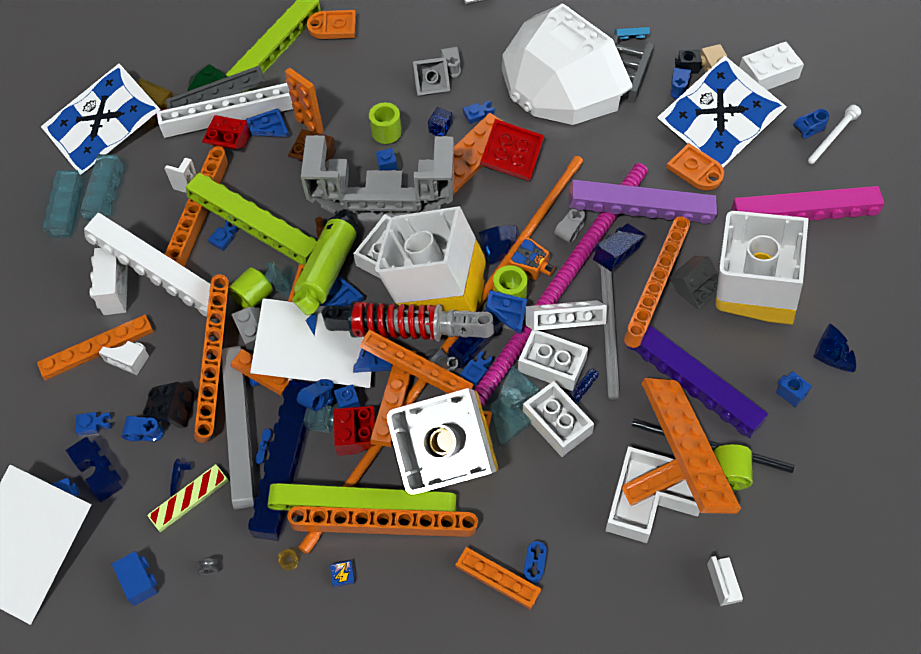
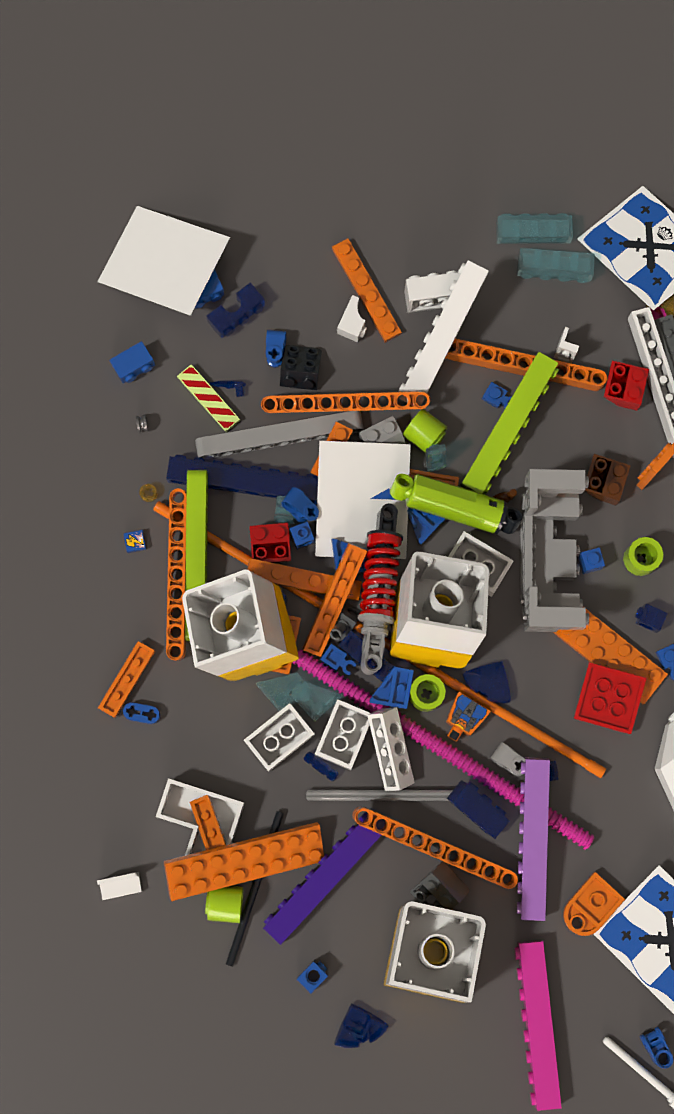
camera: 85 degrees right, 20 degrees up
(90, 422) = (284, 298): blue plate -> none
(263, 447) = (258, 460): blue piece -> none
(268, 124) = (646, 428): blue wing -> none

